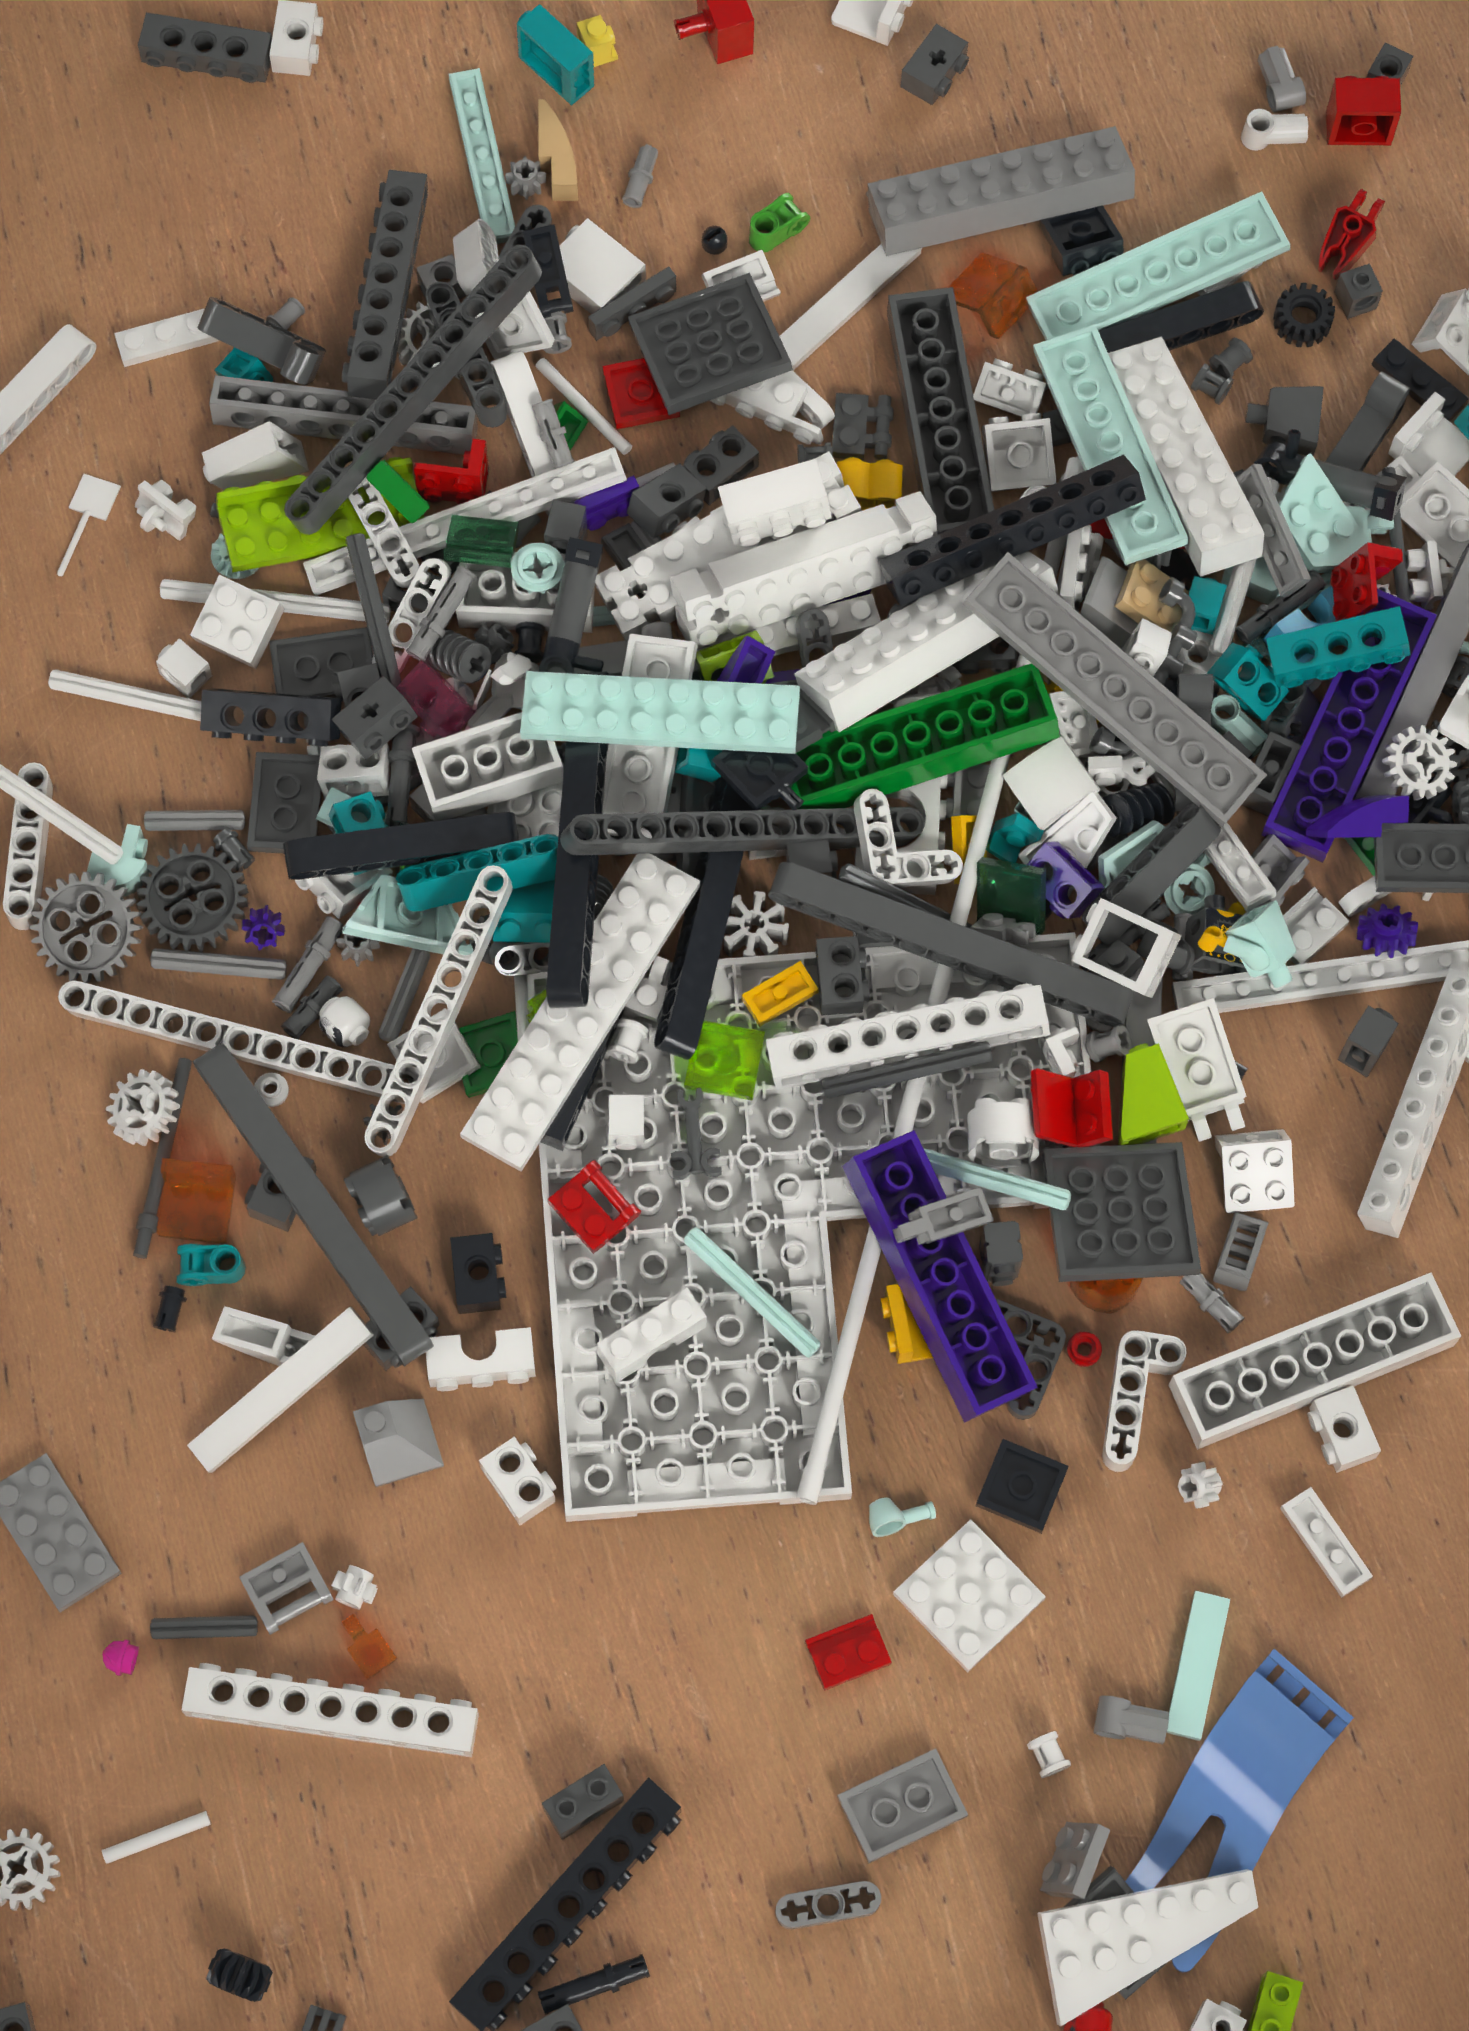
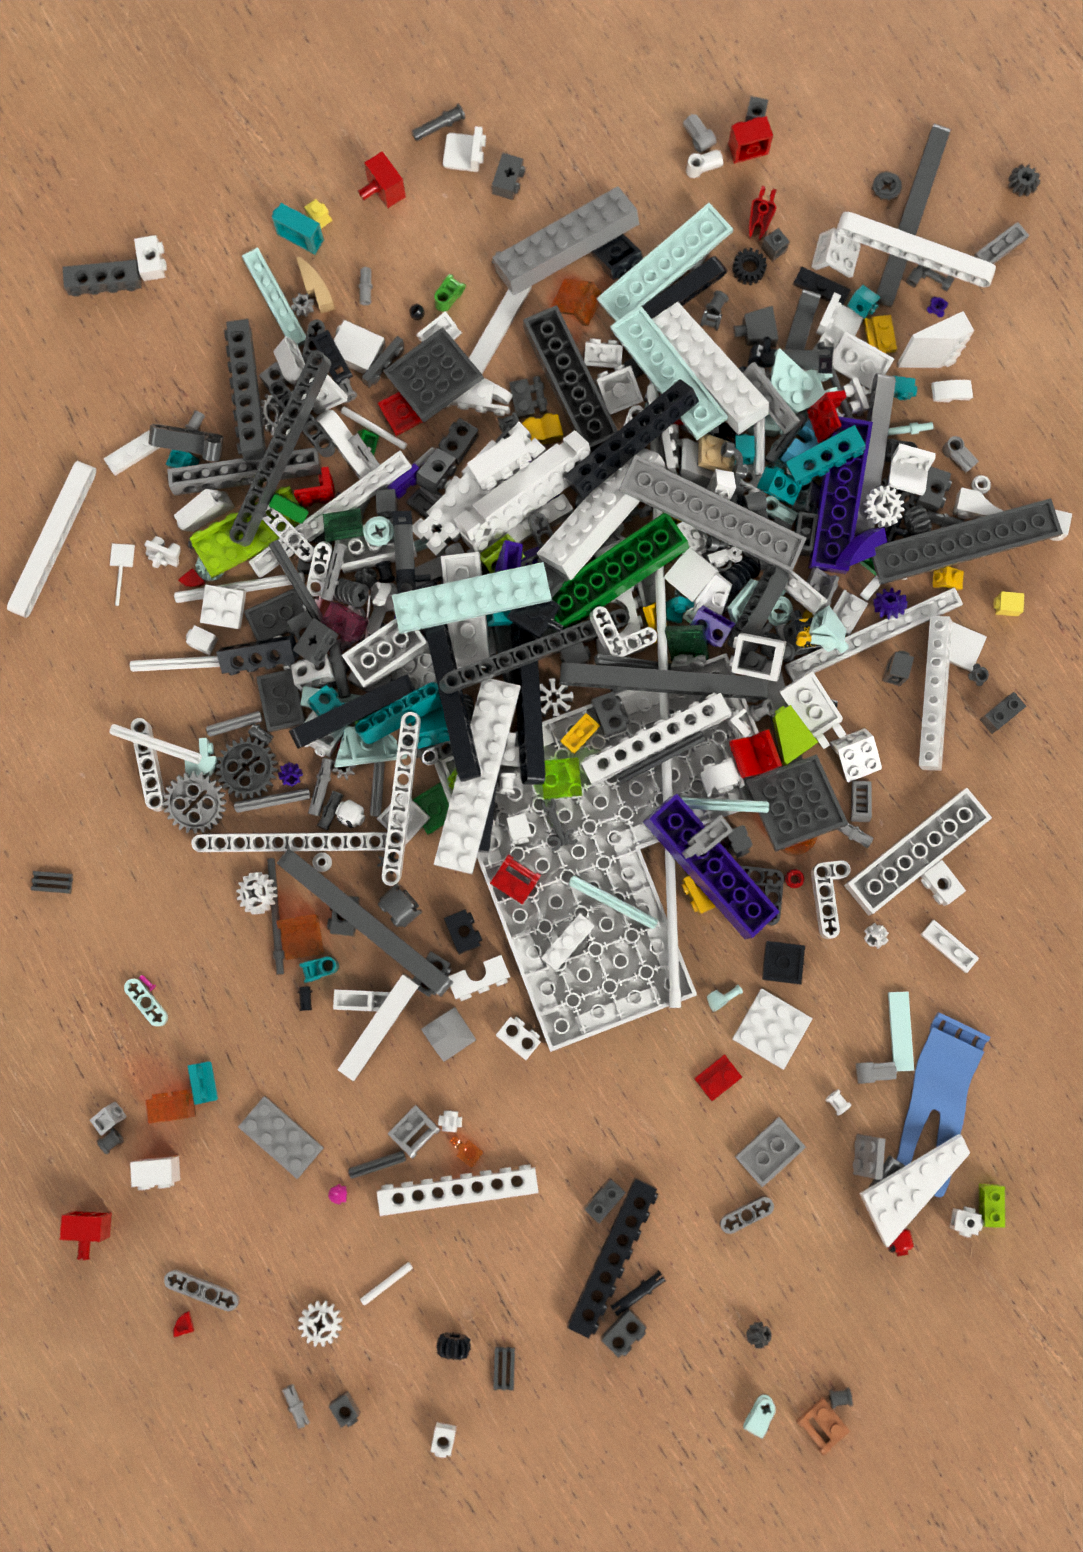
camera: 15 degrees left, 10 degrees up
(198, 566) = (191, 579): none -> red tile

